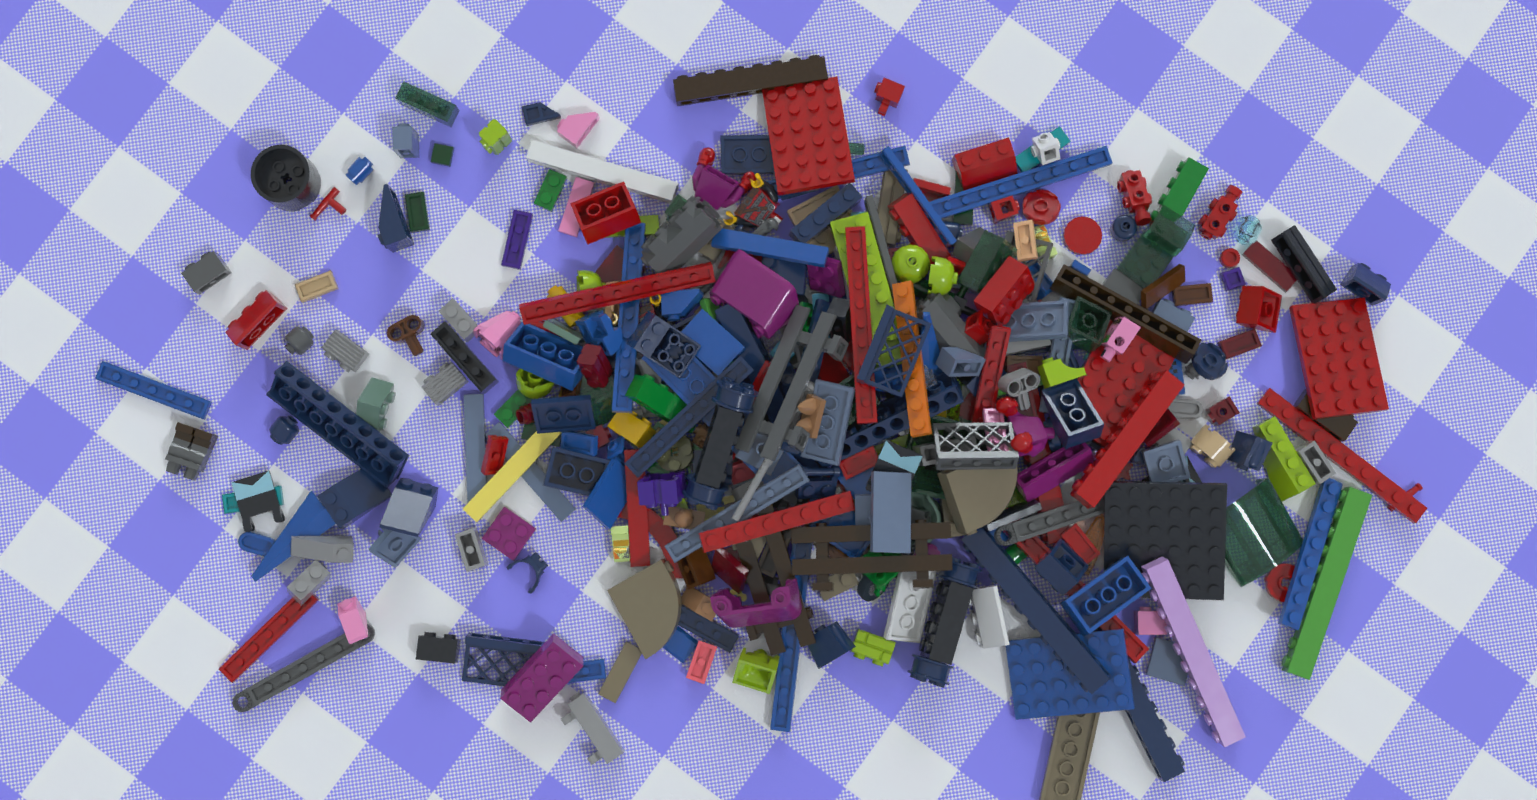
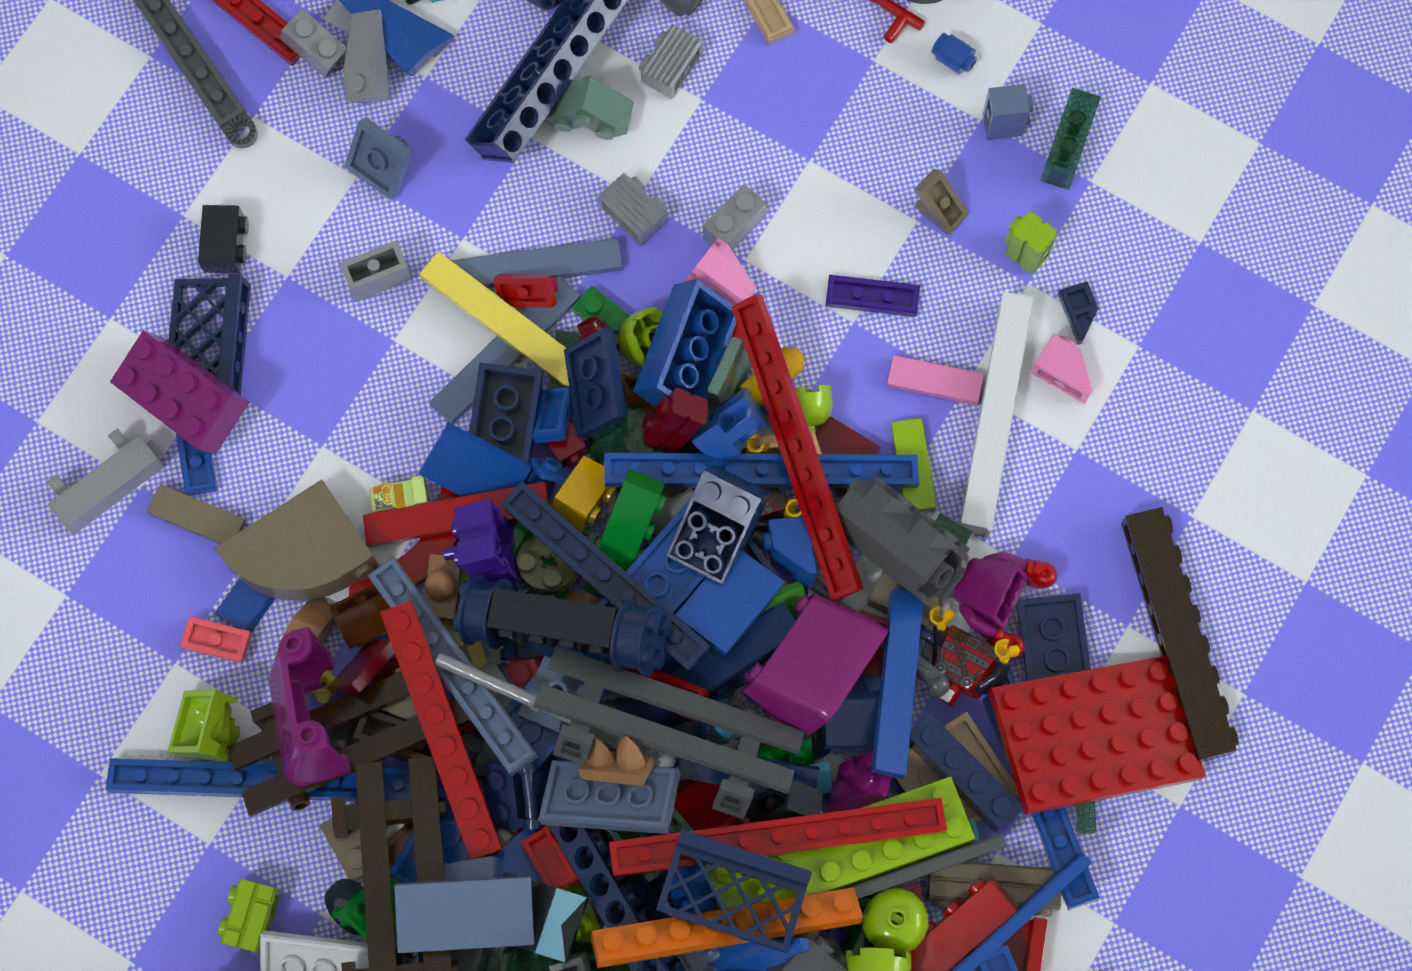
camera: 90 degrees right, 10 degrees down
(353, 498) = (445, 94): dark blue slope -> none
(353, 619) = (259, 110): bright pink slope -> none
(392, 223) = (877, 105): dark blue slope -> none
(407, 334) = (706, 147): reddish brown beam -> none
(409, 507) = (433, 171): slope -> none
(417, 212) = (899, 144): dark green tile -> none
(442, 155) = (994, 171): dark green tile -> none
(461, 190) = (940, 202): none -> dark tan slope
(464, 357) = (673, 232): black brick -> none
(509, 533) = (406, 327): magenta plate -> none
(538, 566) = (357, 373): dark blue helmet -> none
(550, 190) = (957, 338): green plate -> none
(605, 212) = (927, 419): red brick -> none
(707, 630) = (259, 660): dark blue tile -> none
(830, 644) = (250, 842): dark blue torso -> none
(889, 94) = (1188, 868): red brick -> none

